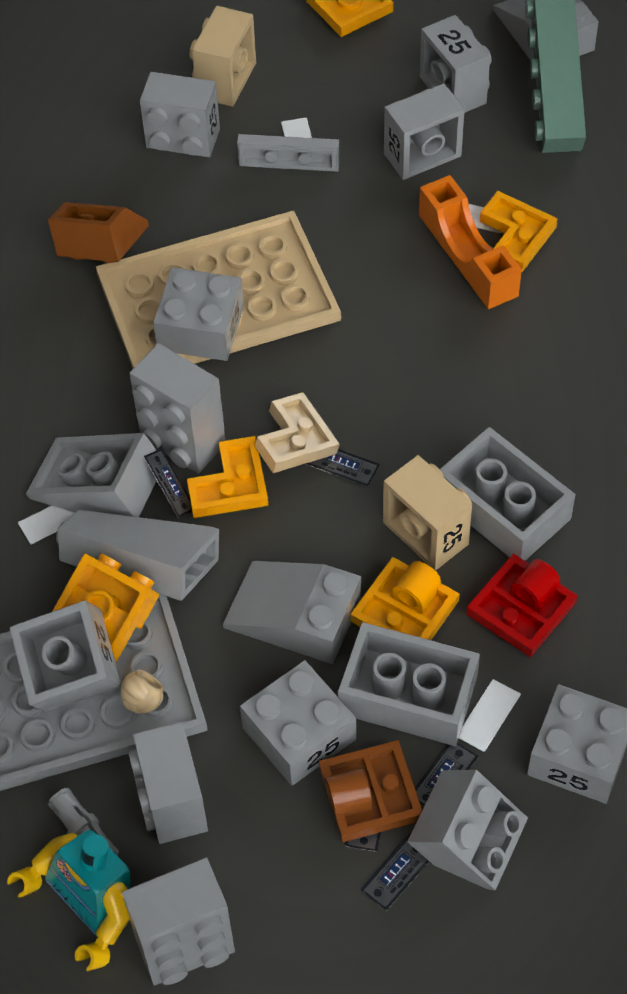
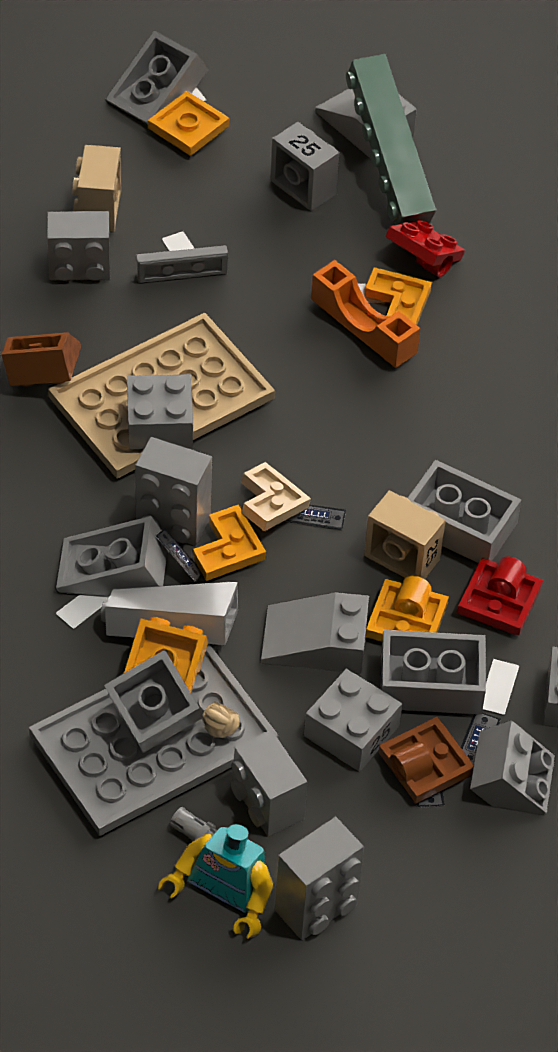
camera: 20 degrees left, 5 degrees down
(395, 875) = (465, 818): sticker -> none
(423, 131) = (296, 226): light grey brick -> none
(565, 175) = (432, 249): none -> red plate

